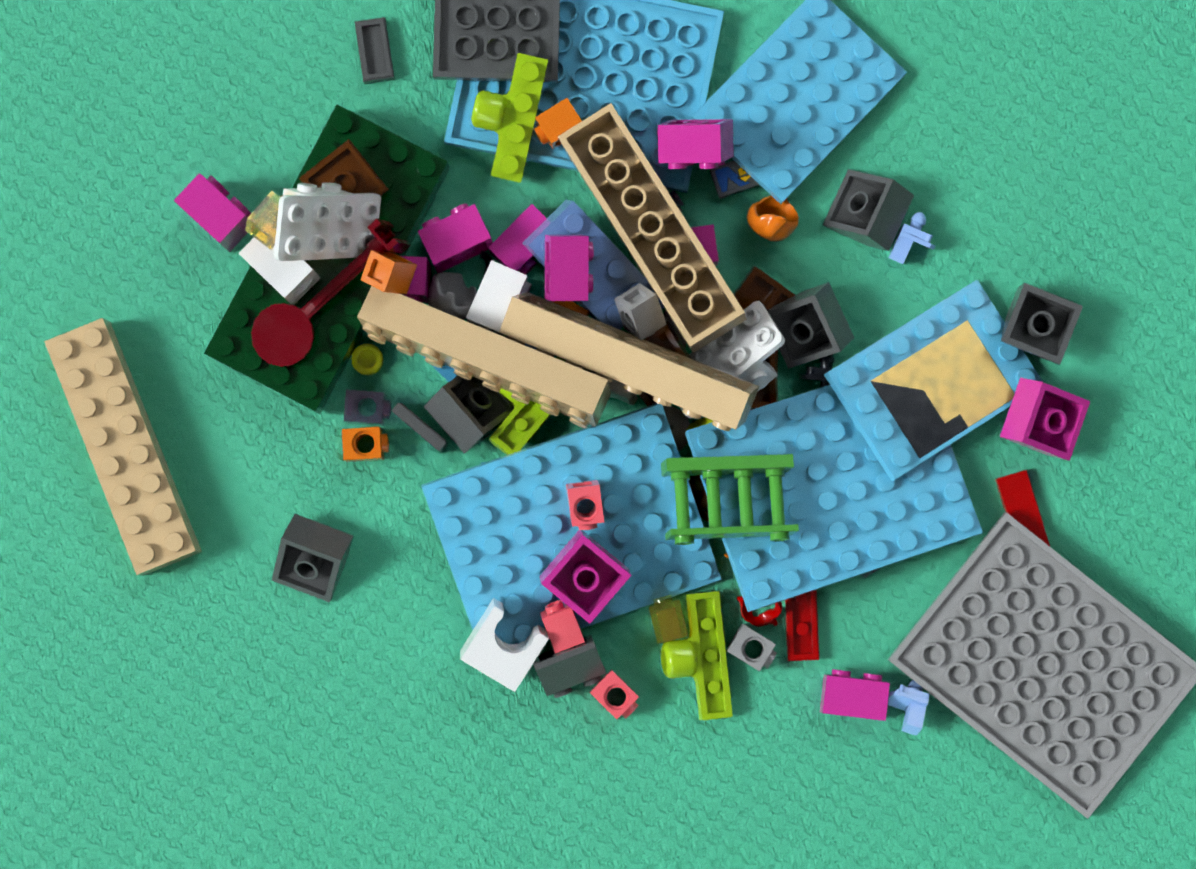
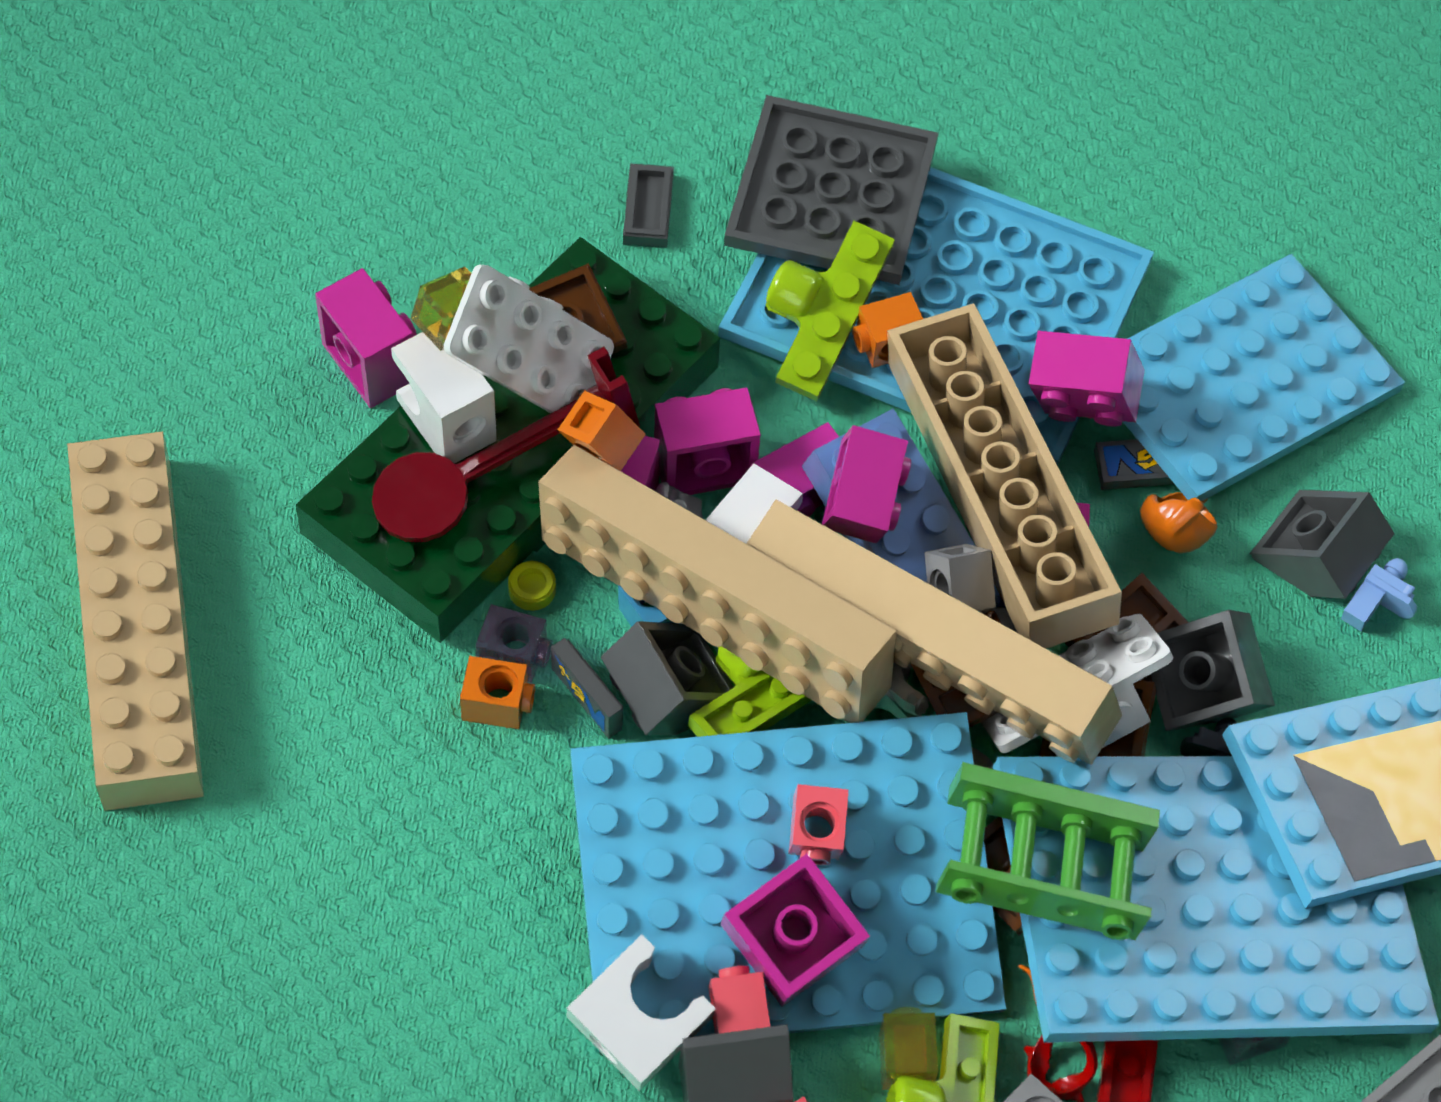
camera: 10 degrees right, 25 degrees down
(311, 557) = (370, 834): dark grey slope -> none

